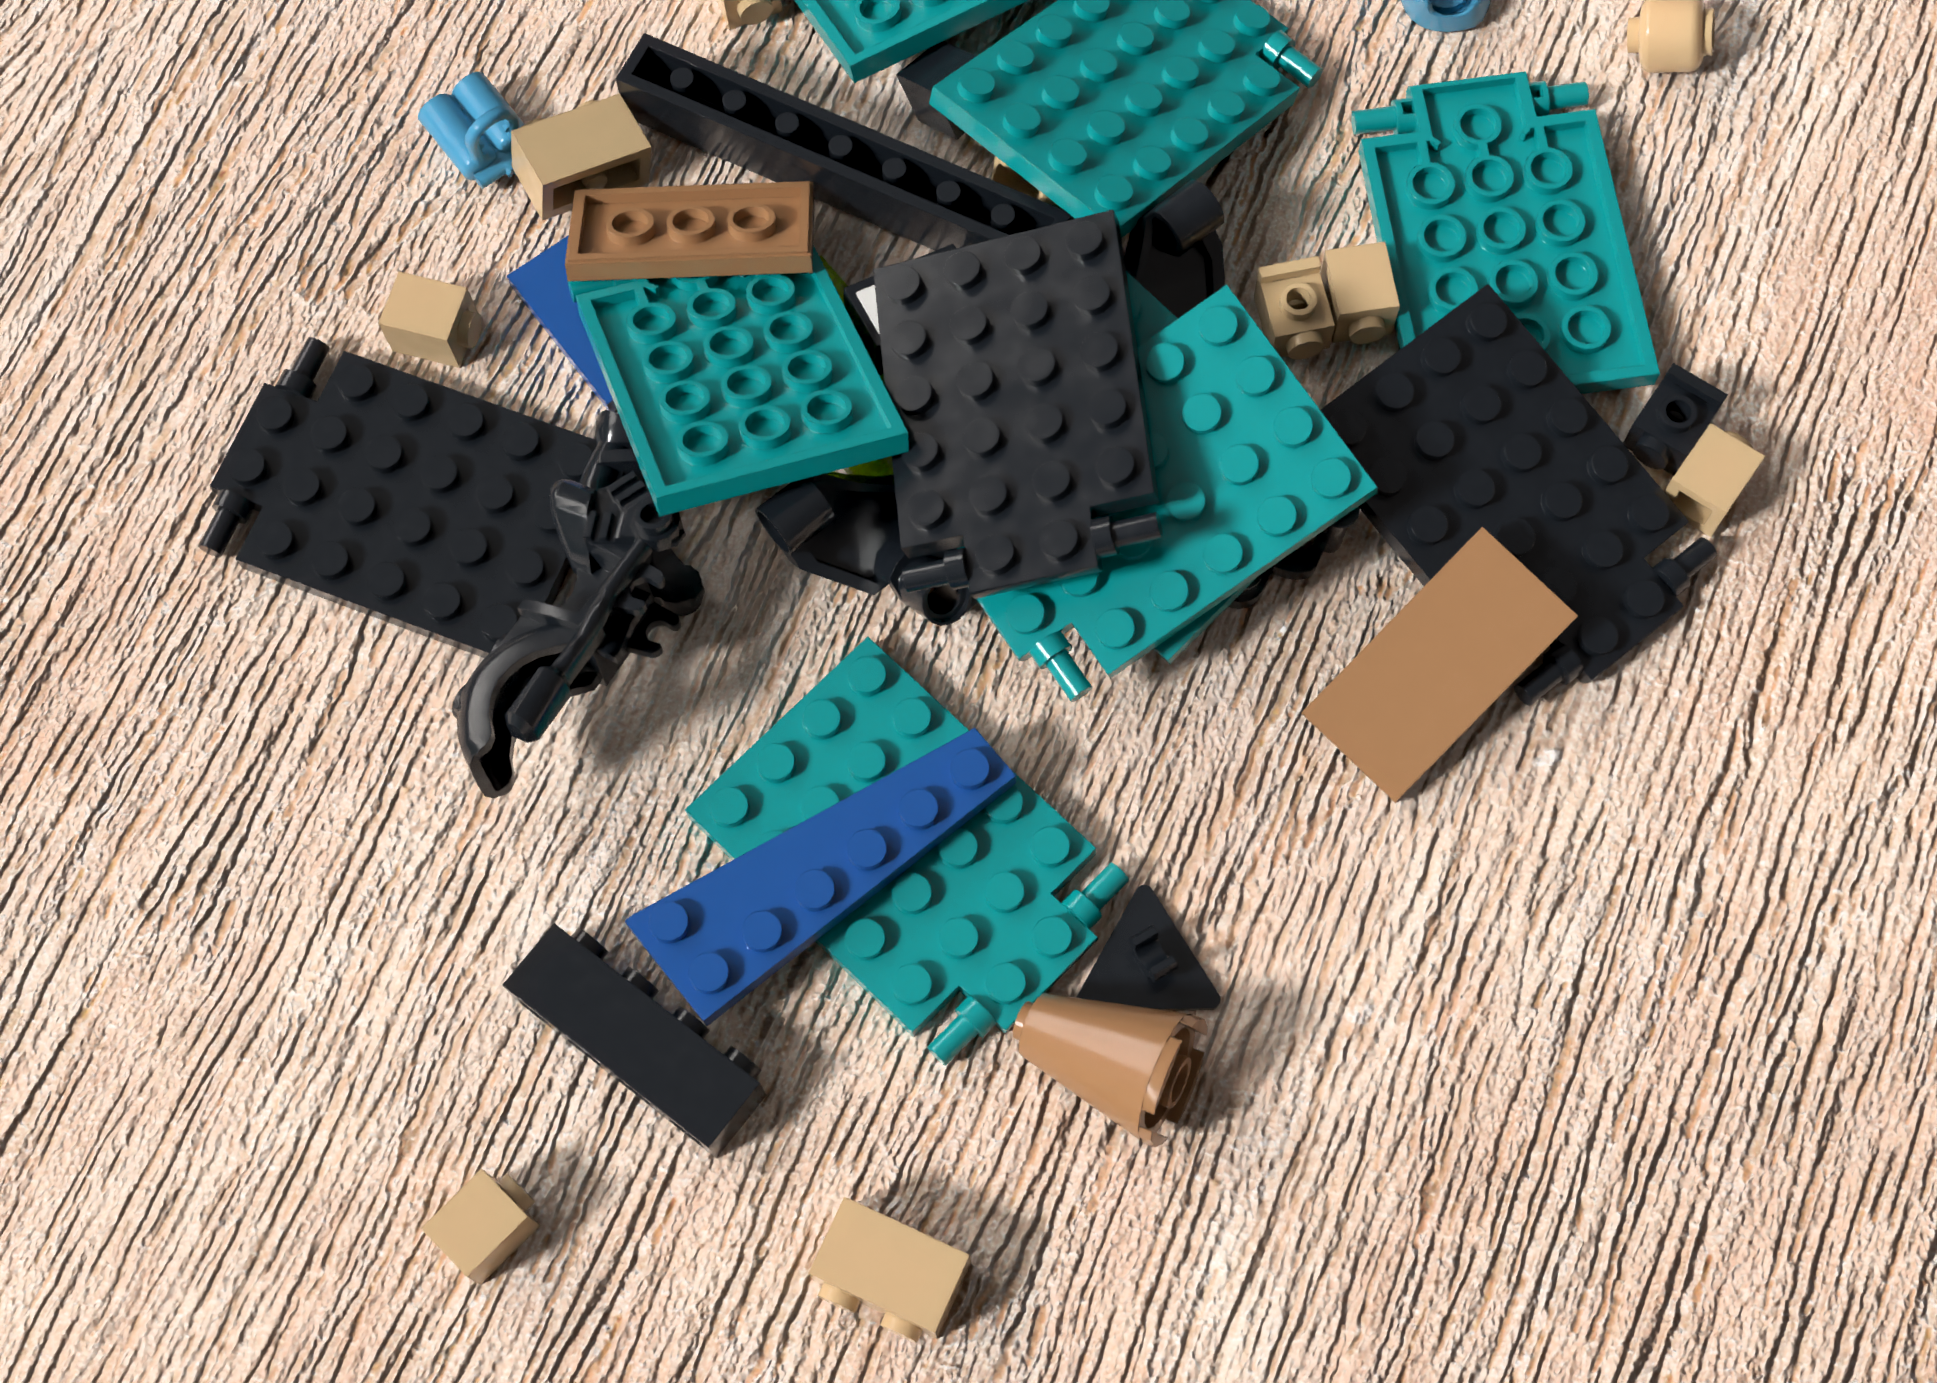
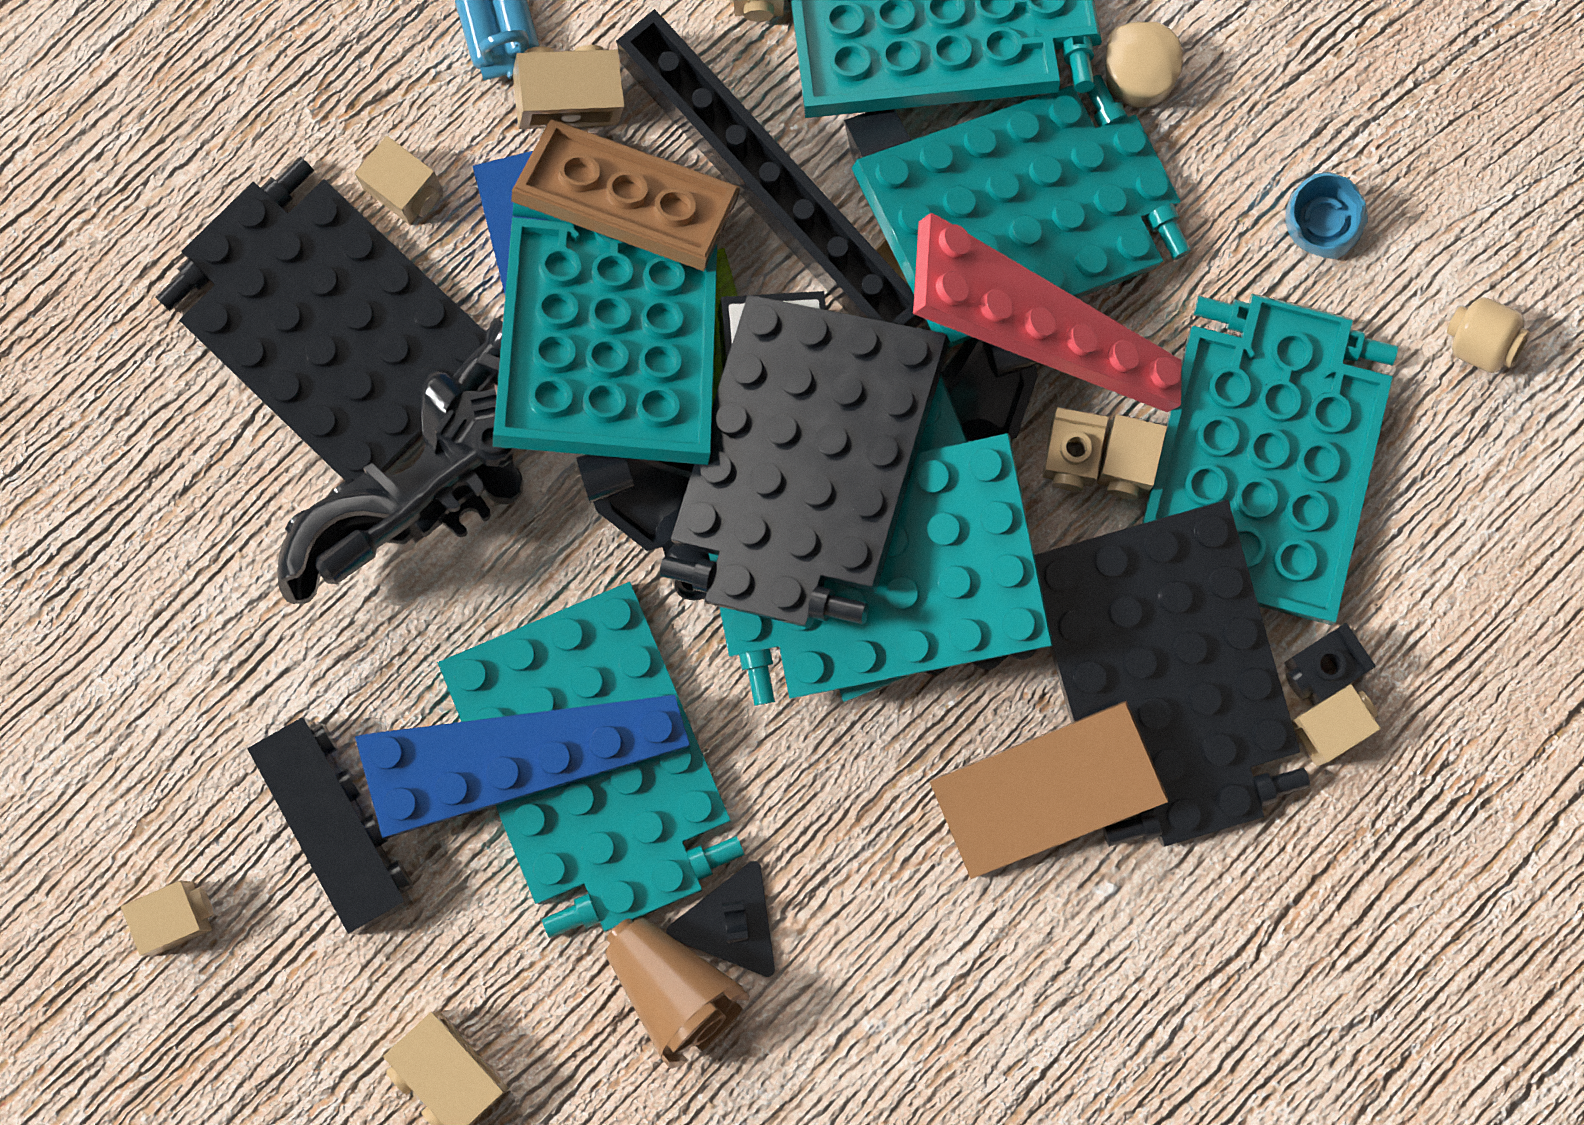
camera: 20 degrees right, 10 degrees up
(1169, 164) = (1009, 306): none -> coral wing

